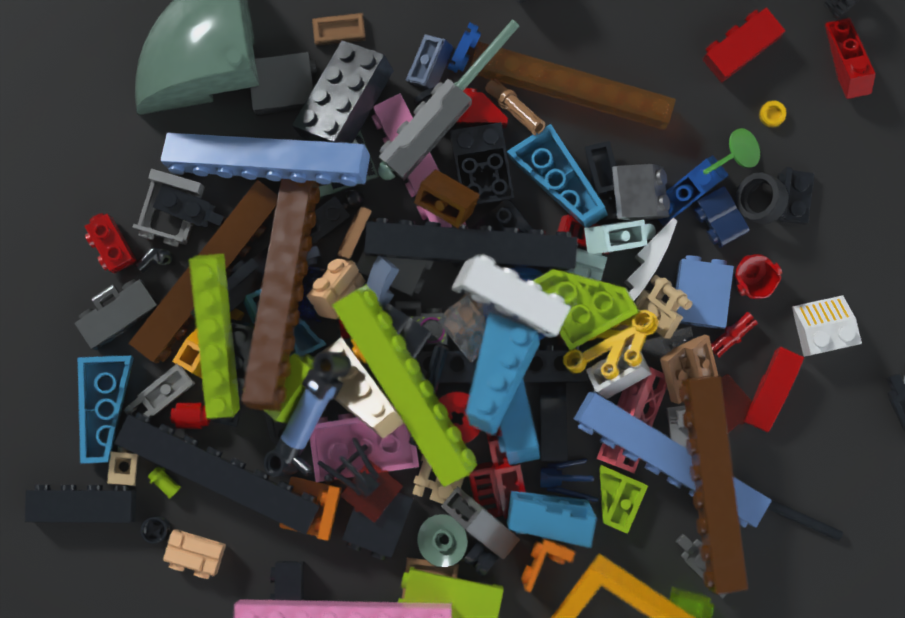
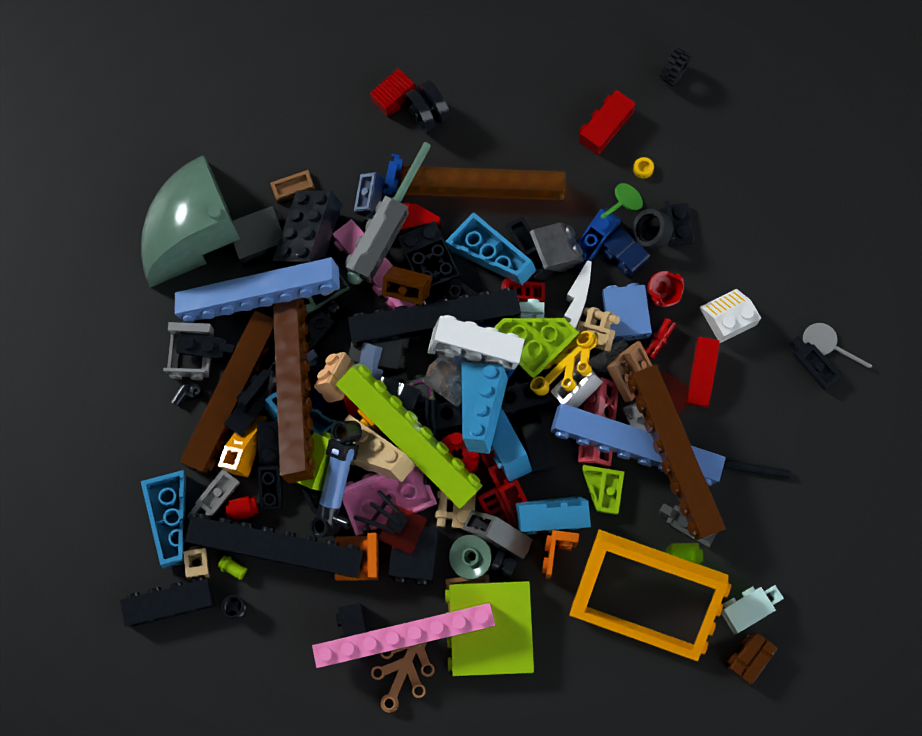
camera: 10 degrees left, 10 degrees down
(110, 243) = (148, 388): red brick -> none
(117, 317) = (162, 449): dark grey piece -> none
(194, 553) = (269, 618): light nougat brick -> none
(215, 335) = (247, 433): lime brick -> none
(353, 233) = (340, 331): medium nougat tile -> none
(508, 100) = (437, 205): medium nougat pin -> none
(552, 478) = (545, 483): dark blue plant -> none
(618, 236) = (548, 283): light aqua brick -> none
(850, 59) = (691, 113): red slope -> none

